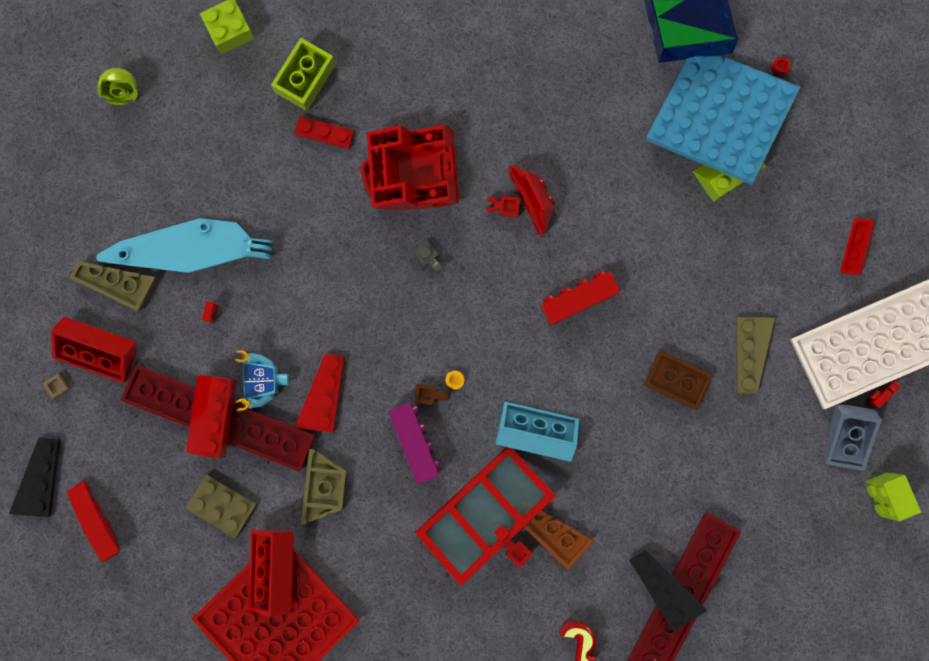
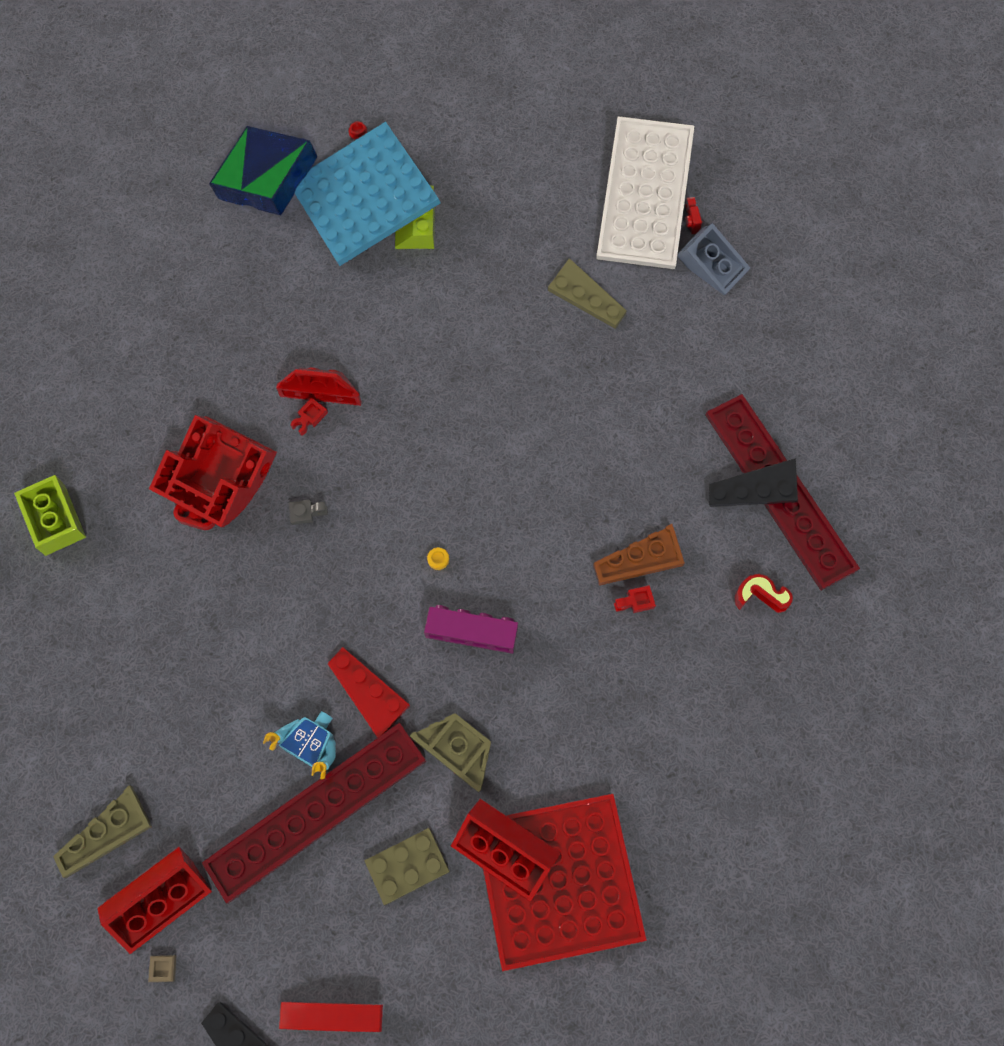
camera: 50 degrees left, 15 degrees down
(187, 247) = (124, 735): medium azure wing -> none
(210, 312) = (203, 748): red tile -> none
(211, 416) = (307, 813): red slope -> none
(324, 132) = (118, 534): red plate -> none
(426, 394) = (435, 591): reddish brown plate -> none
(485, 515) = (585, 607): door -> none
(538, 431) = (537, 512): medium azure slope -> none
(580, 298) = (439, 403): red brick -> none
(677, 380) = (570, 366): reddish brown plate -> none
(857, 246) = (553, 162): red plate -> none
(893, 496) = (785, 255): lime brick -> none

